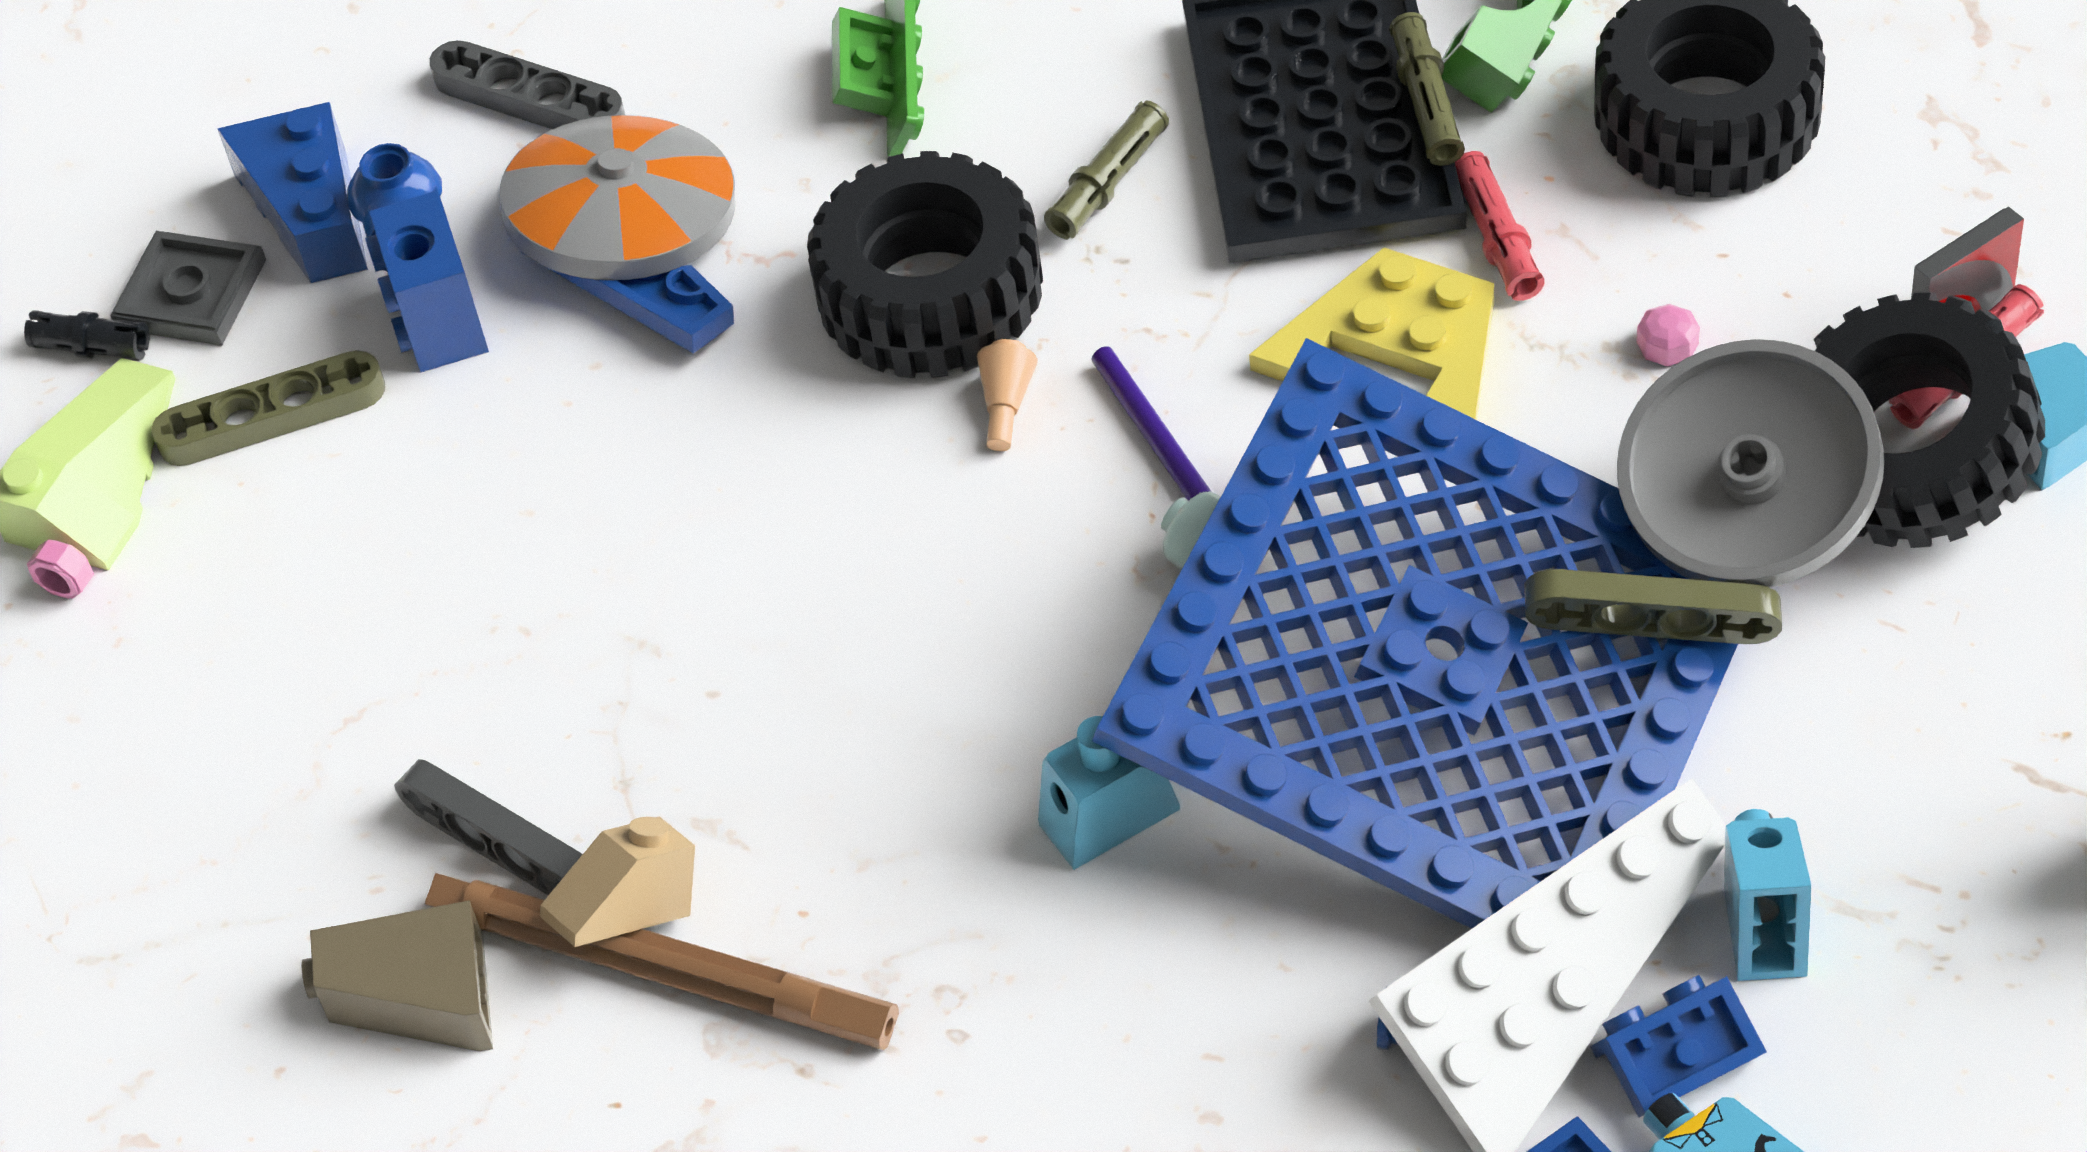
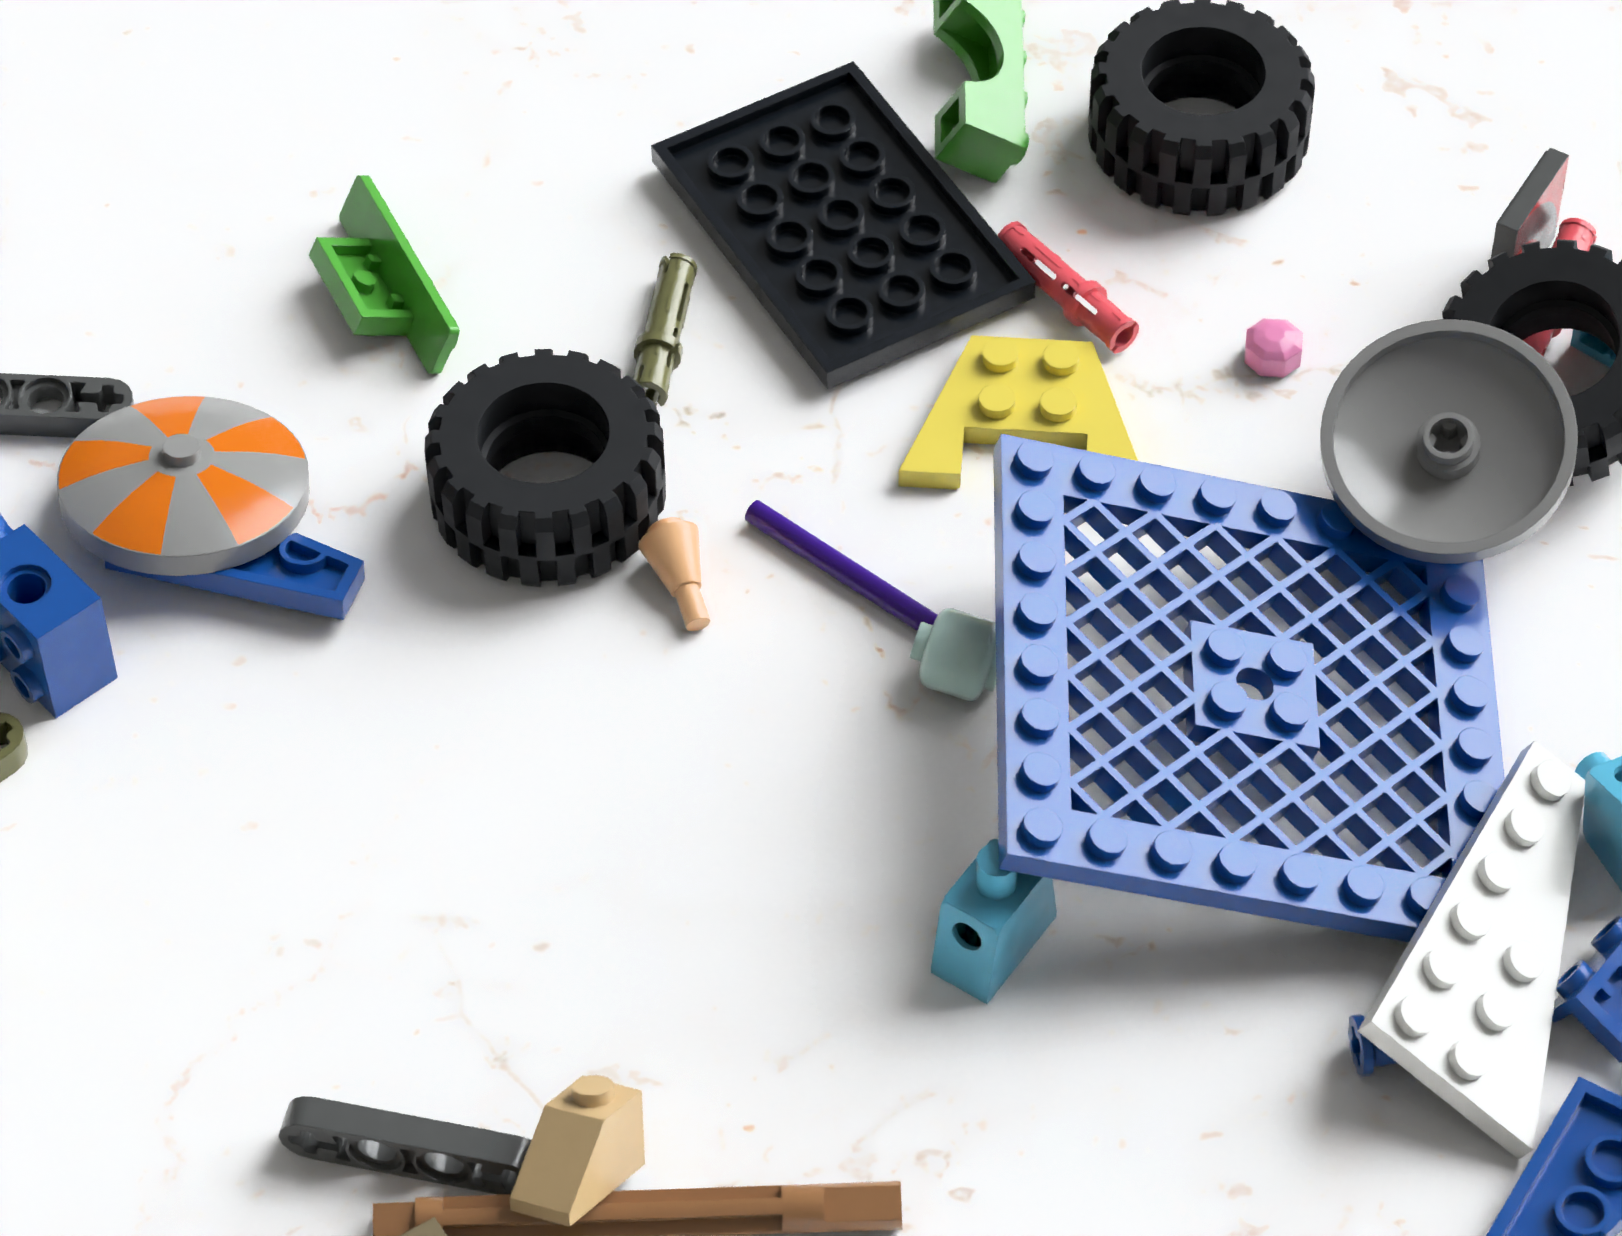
camera: 30 degrees left, 0 degrees up
(1421, 70) = (906, 133): olive pin -> none
(1652, 606) = (1418, 596): olive beam -> none

